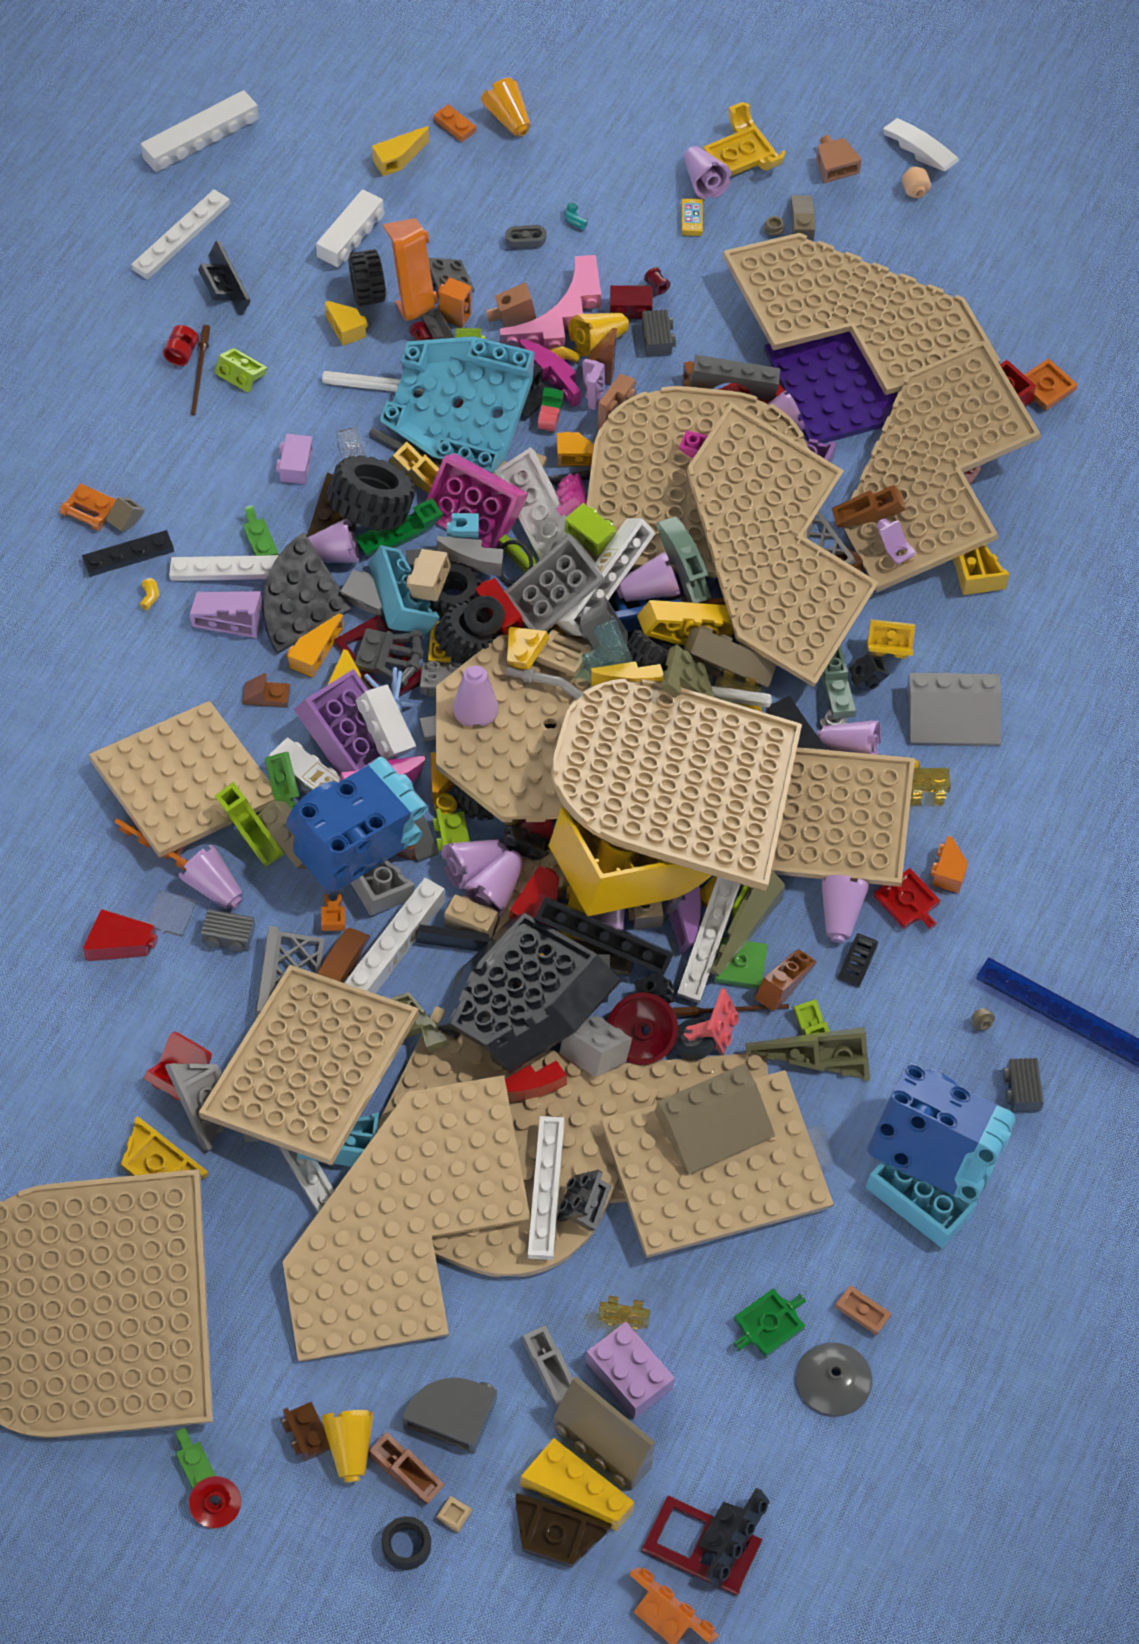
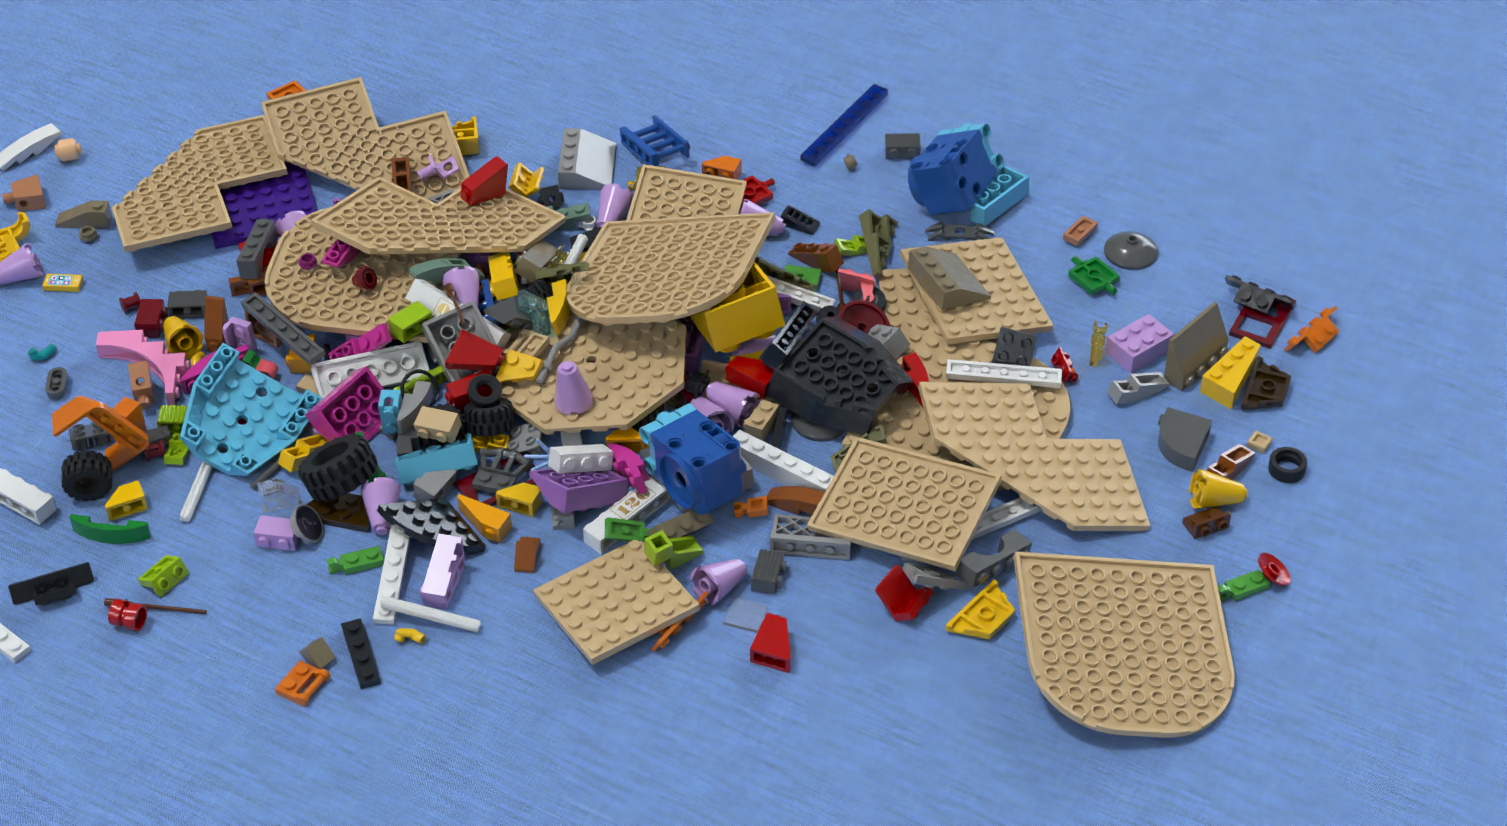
camera: 85 degrees left, 15 degrees down
(172, 606) = (430, 613): none -> white axle
(255, 1193) = (979, 568): none -> dark grey arch
(301, 480) = (306, 524): none -> tile
(305, 296) = (109, 533): none -> green slope
(535, 595) = (474, 354): none -> red slope
(578, 411) = (283, 328): none -> dark grey plate
(596, 1272) = (1062, 361): none -> red hinge
(625, 559) = (451, 293): none -> reddish brown piece
(663, 479) = (365, 279): none -> dark red brick
(695, 416) = (307, 261): none -> magenta plate
(839, 580) = (485, 183): none -> red slope
(849, 1169) = (946, 231): none -> dark grey piece
(987, 762) = (648, 153): none -> blue fence

